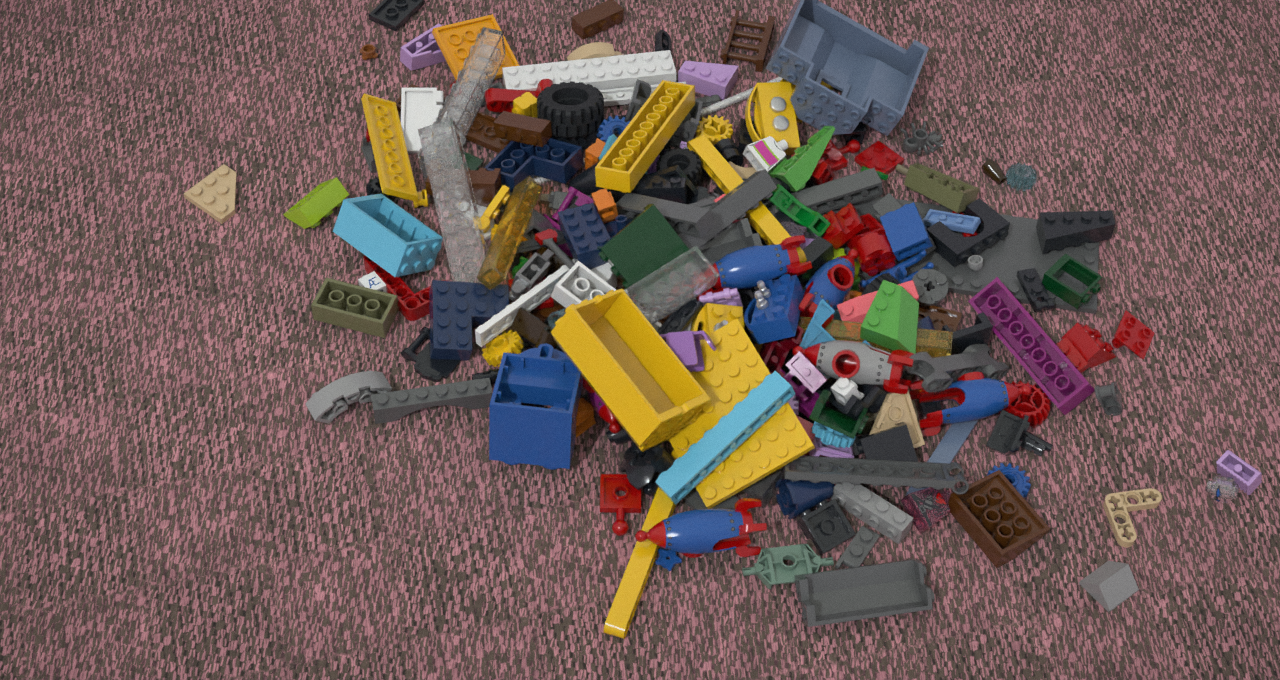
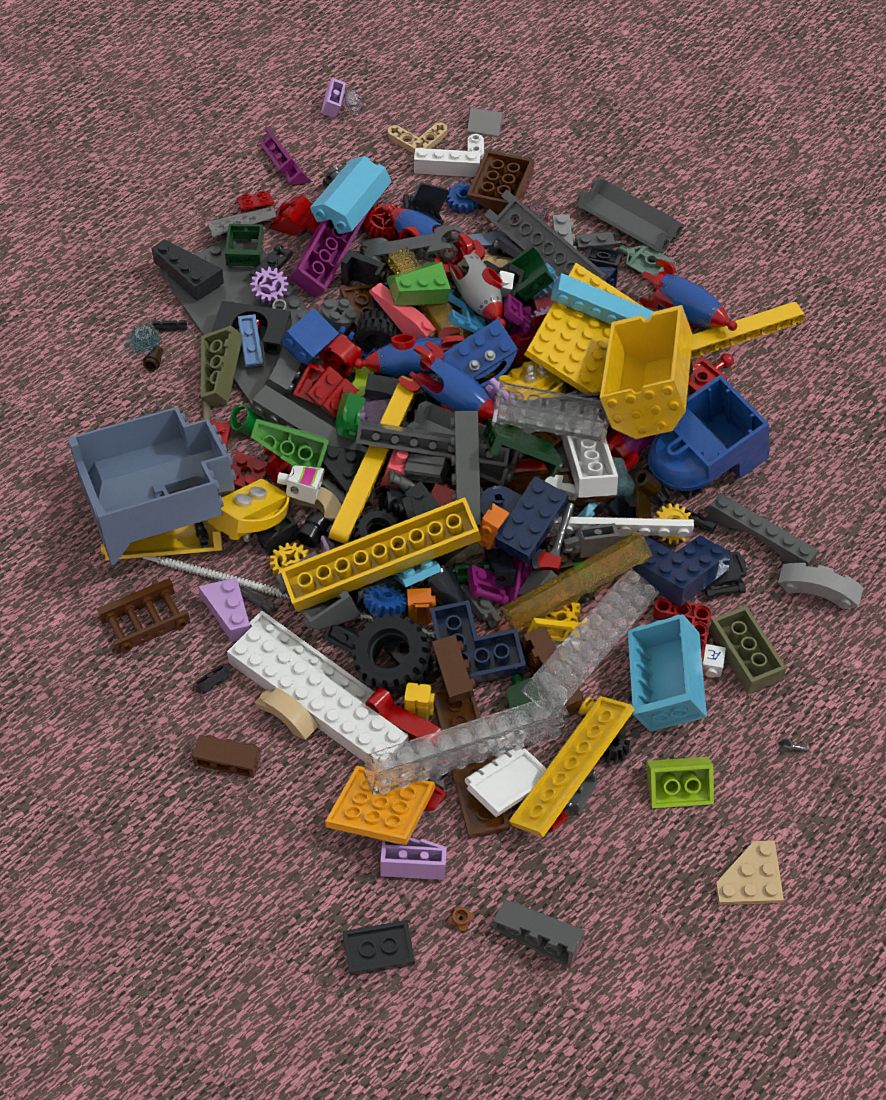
camera: 130 degrees left, 5 degrees up
(266, 279) = (787, 745): none -> dark grey hand
(312, 70) = (539, 932): none -> dark grey wedge
(687, 347) = (585, 365): medium lavender piece -> none
(1005, 266) = (267, 292): none -> lavender gear
(1024, 202) = (170, 325): none -> black axle
(1068, 377) = (351, 194): none -> medium azure panel
(1069, 499) = (446, 162): none -> white brick
(1076, 549) = (476, 143): none -> white plate
(1112, 303) = (220, 226): none -> light grey wing
(1181, 390) = (283, 159): none -> magenta wedge

